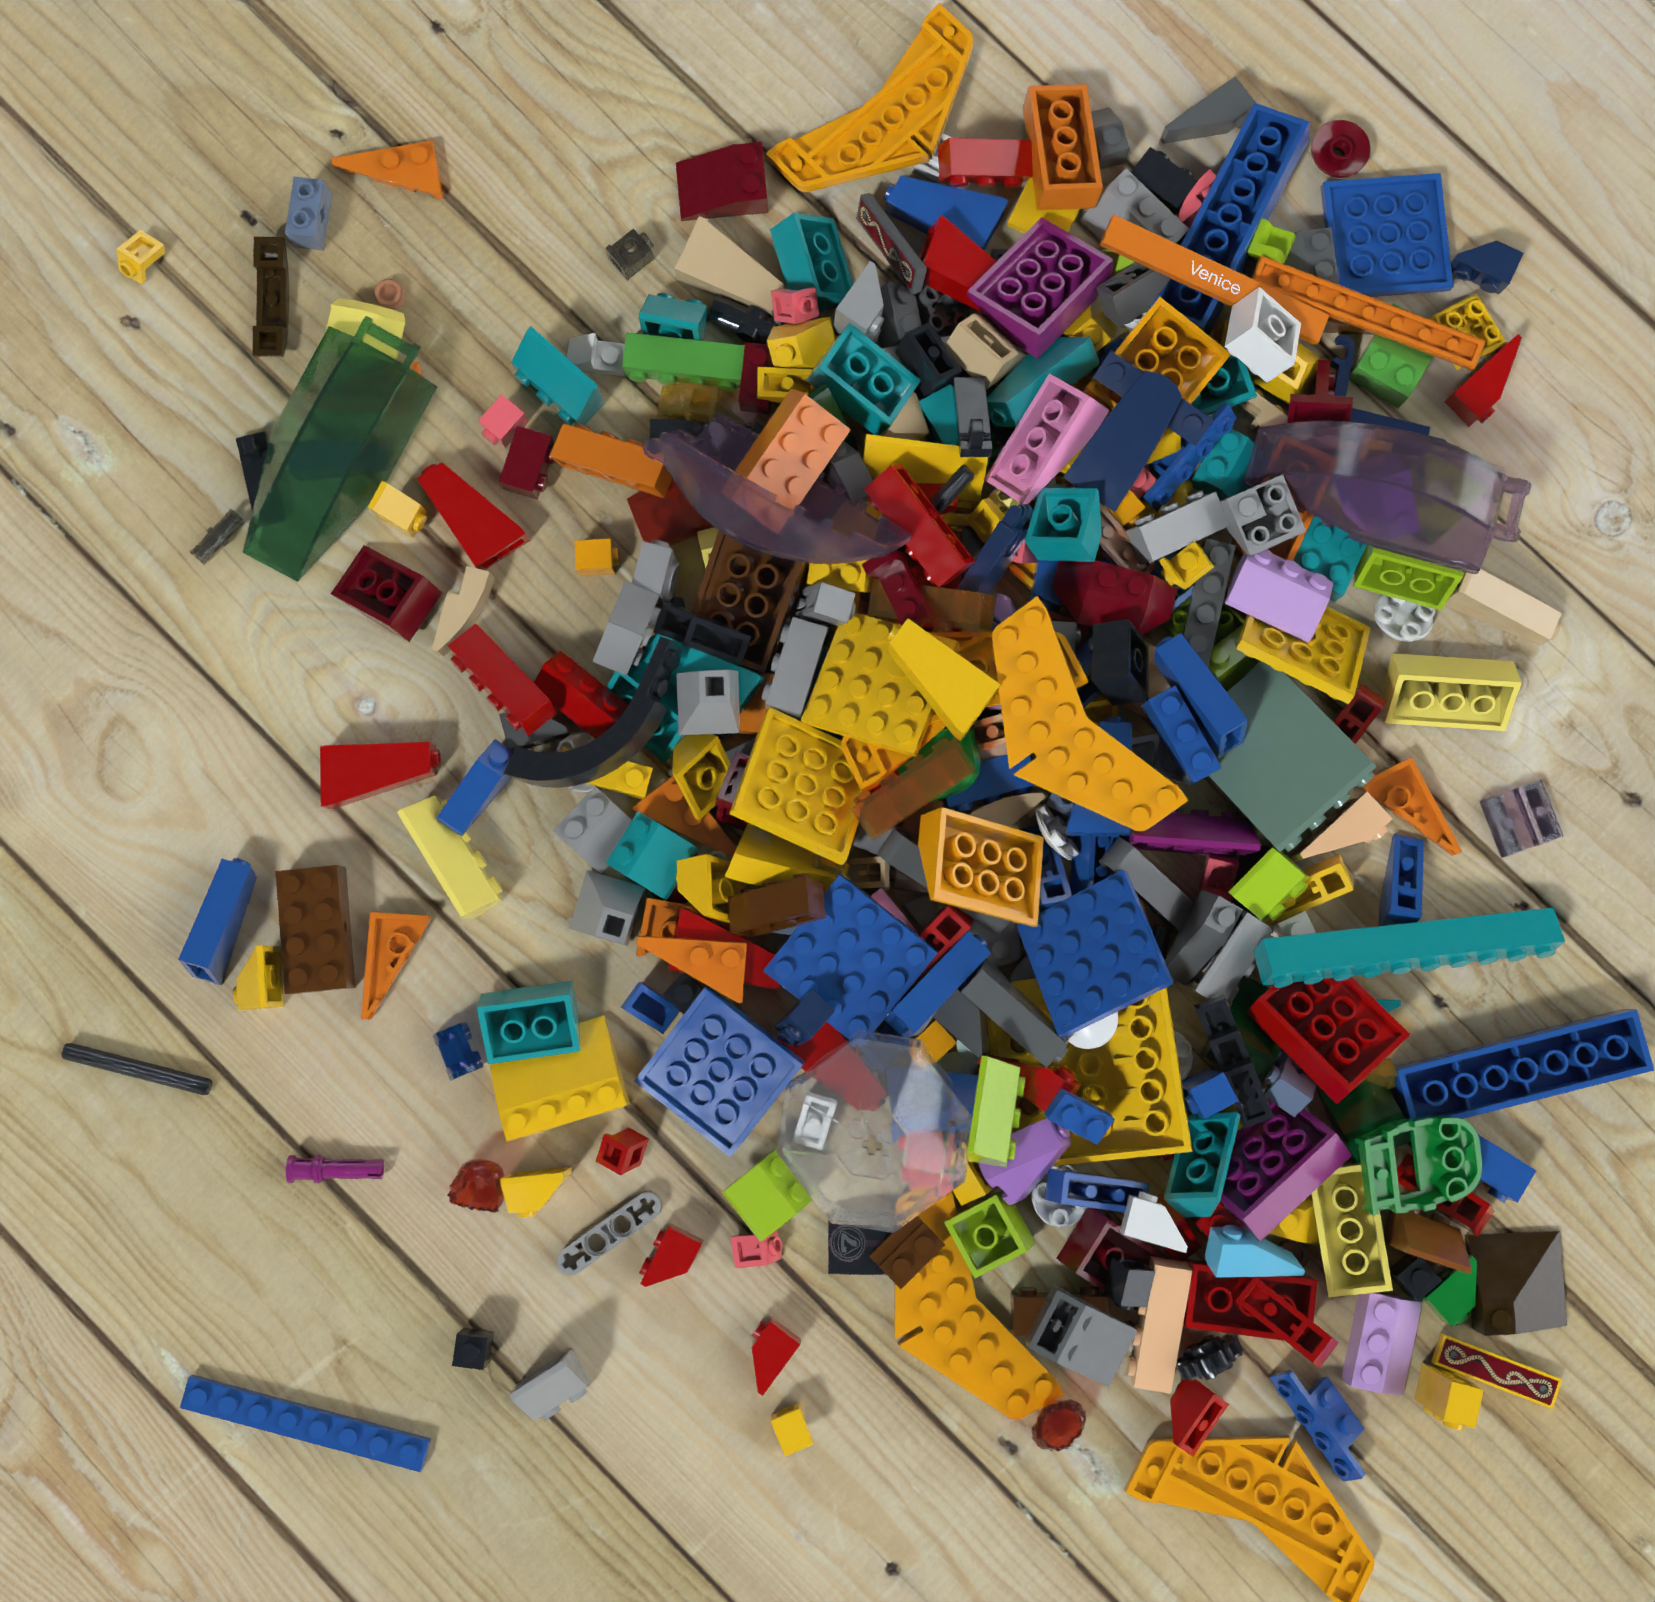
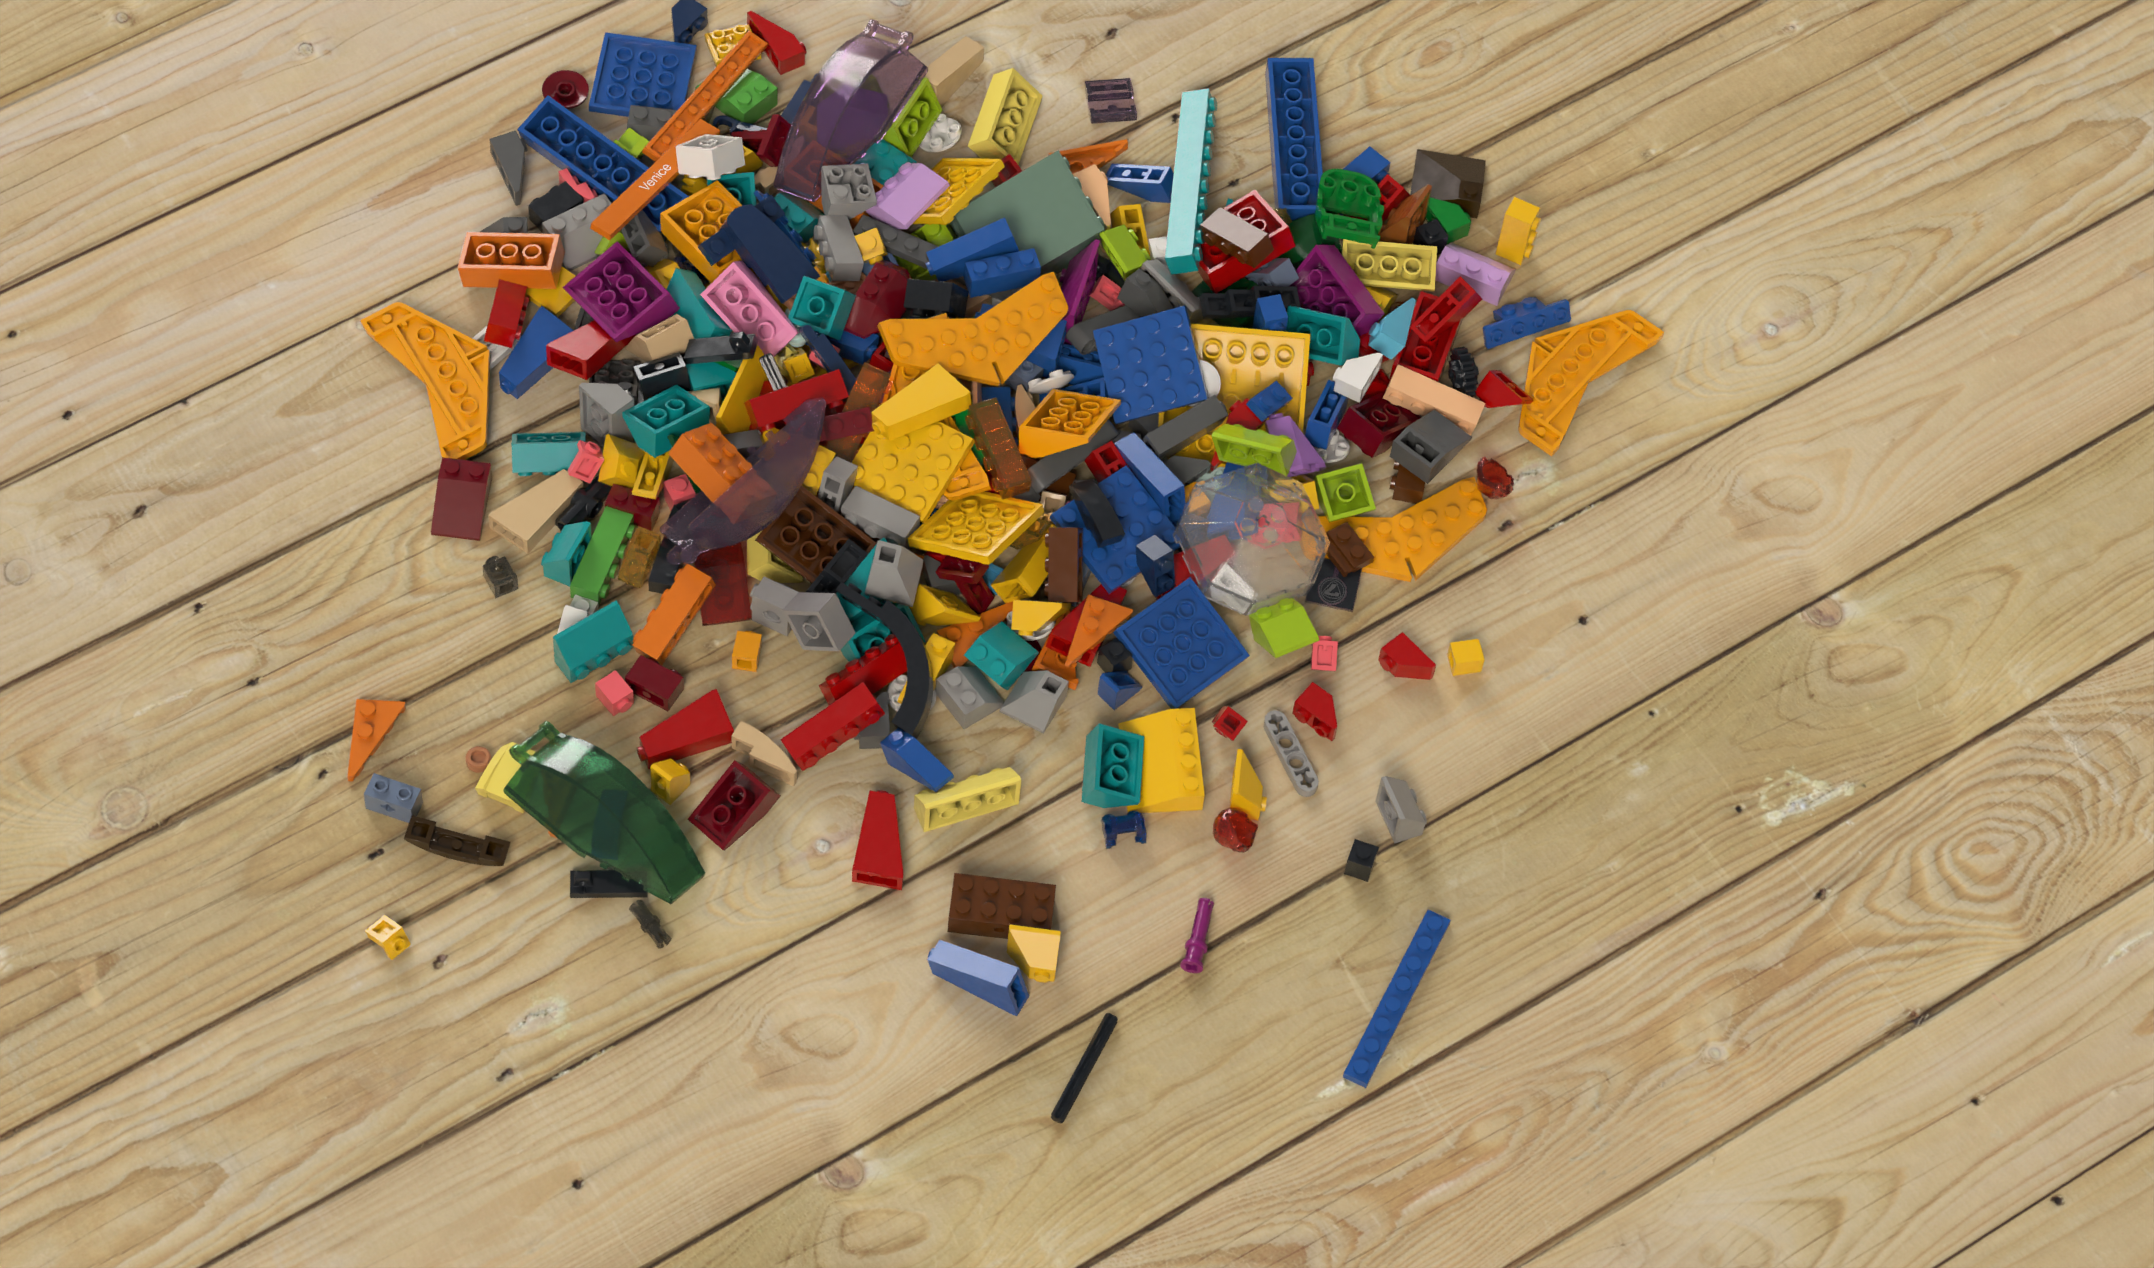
camera: 85 degrees left, 25 degrees down
(388, 948) = (1026, 861): orange wing -> none
(848, 930) = (1097, 513): none -> black slope
(891, 243) = (553, 388): tile -> none
(1129, 1283) = (1399, 408): black brick -> none
(1314, 1026) = (1236, 237): none -> brick
(1496, 1371) = (1523, 188): tile -> none

